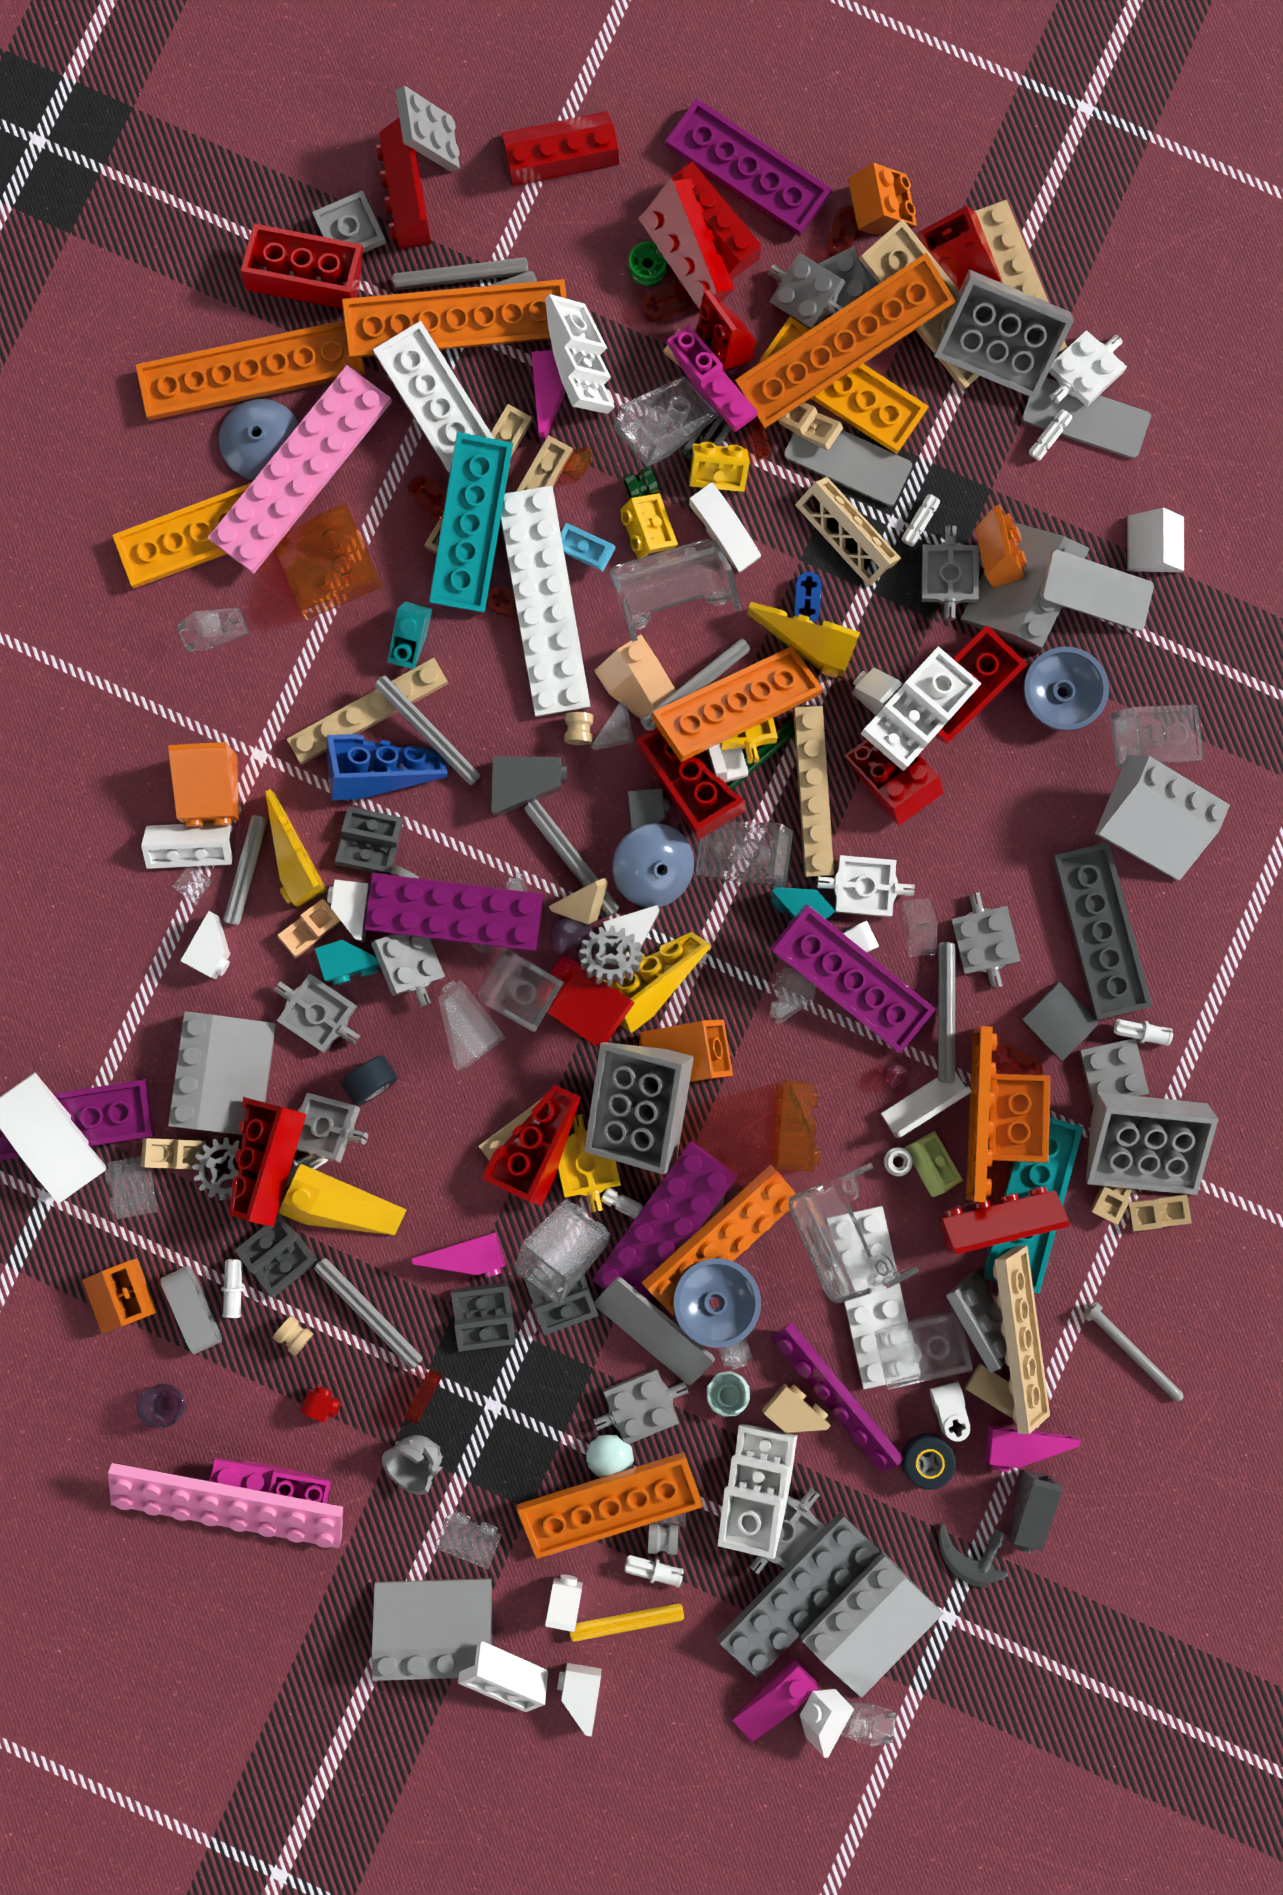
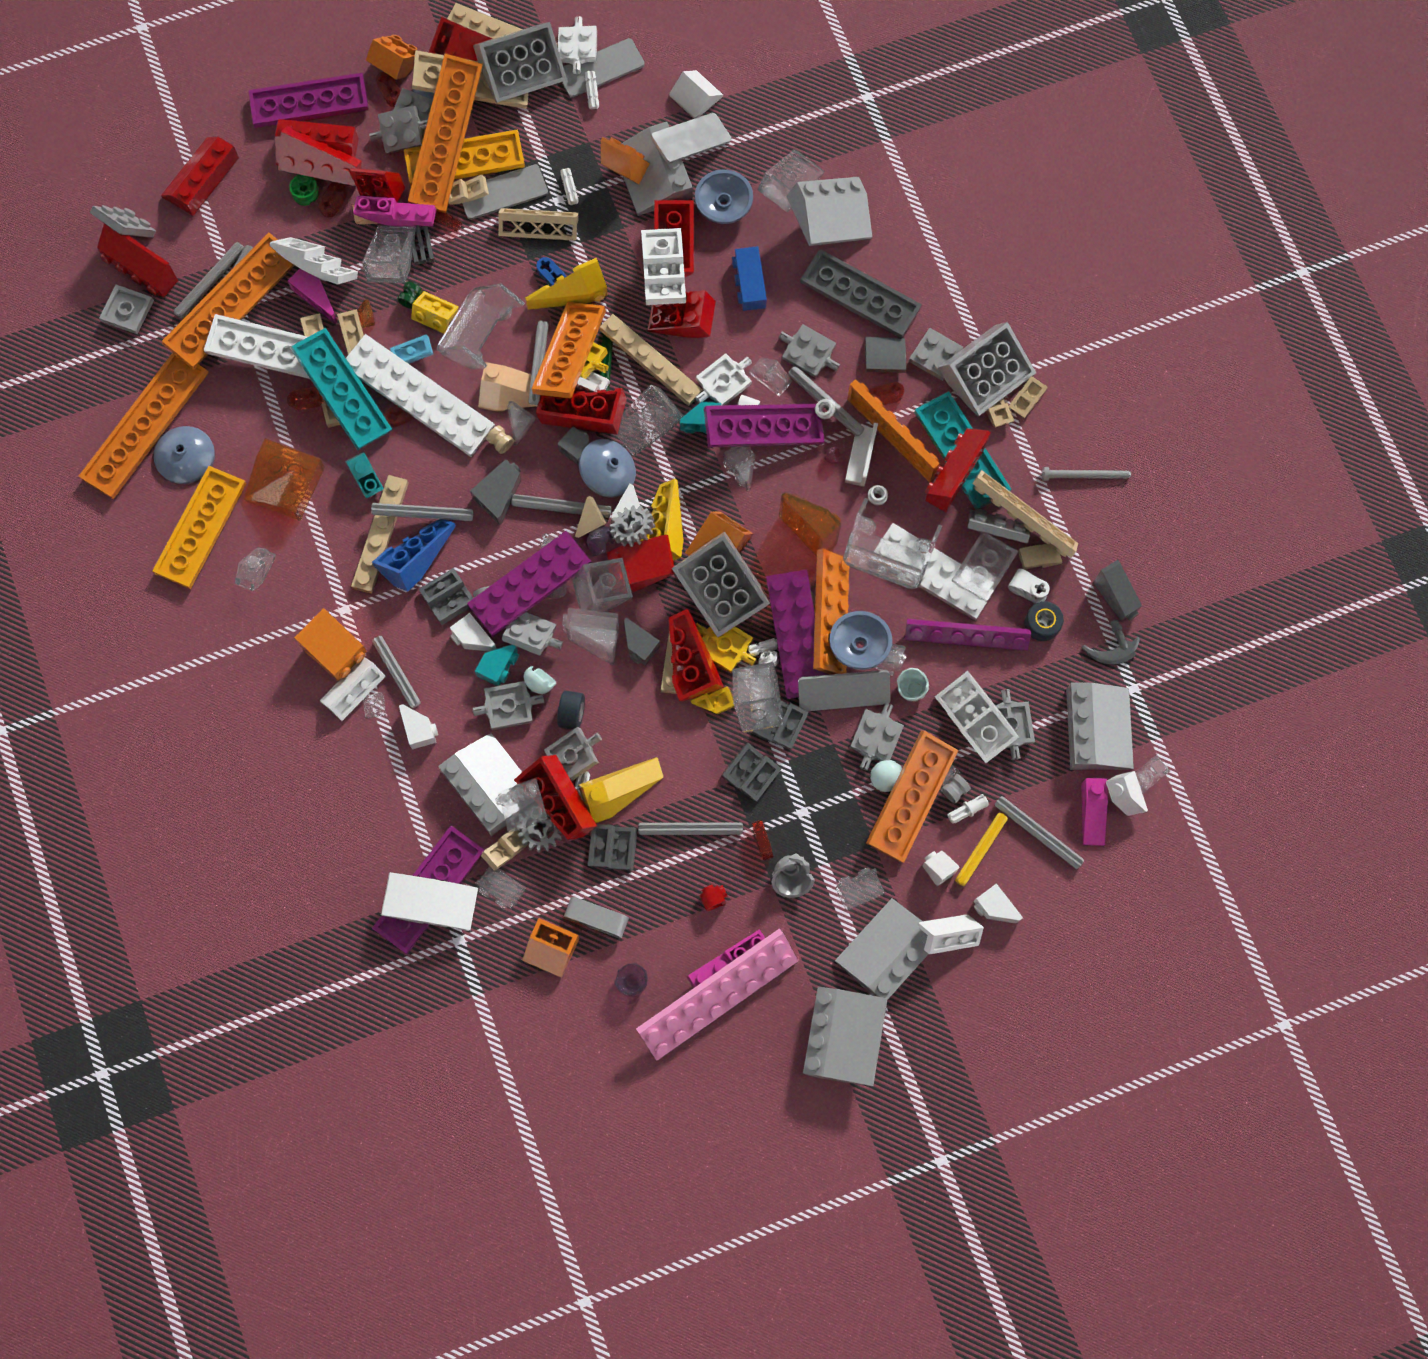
camera: 45 degrees left, 10 degrees down
(221, 1133) = (521, 805): none -> clear hinge
(232, 1288) = (607, 886): white axle -> none
(293, 1334) = (663, 877): tan wheel -> none
(294, 865) = (425, 642): yellow wedge -> none
(300, 469) = (222, 447): bright pink plate -> none
(301, 266) = (121, 348): red slope -> none
(302, 1673) = (845, 1036): none -> light grey slope
(309, 928) = (460, 668): light nougat slope -> none
(369, 1018) = (538, 680): none -> light aqua hair
(469, 1257) = (714, 747): dark pink slope -> none
(504, 1078) = (640, 643): none -> dark grey slope
(520, 1212) = (715, 702): none -> yellow slope
(614, 1222) = (769, 656): none -> white plate
(700, 1664) = (1039, 832): none -> light grey axle
(719, 464) = (442, 250): yellow bracket -> none
(724, 527) = (471, 275): white slope -> none
(792, 1413) = (953, 663): tan slope -> none
(798, 1595) = (1050, 748): dark grey plate -> none
(875, 689) = (631, 282): white slope -> none
(926, 1019) = (823, 403): none -> white plate
(934, 1164) = (896, 480): yellowish green slope -> none
(950, 573) = (610, 196): light grey plate -> none
(1003, 802) = (749, 278): none -> blue brick
(1009, 1449) = (1078, 571): dark pink slope -> none
(1021, 1118) = (916, 412): orange plate -> none
(1144, 1032) = (930, 321): white axle -> none

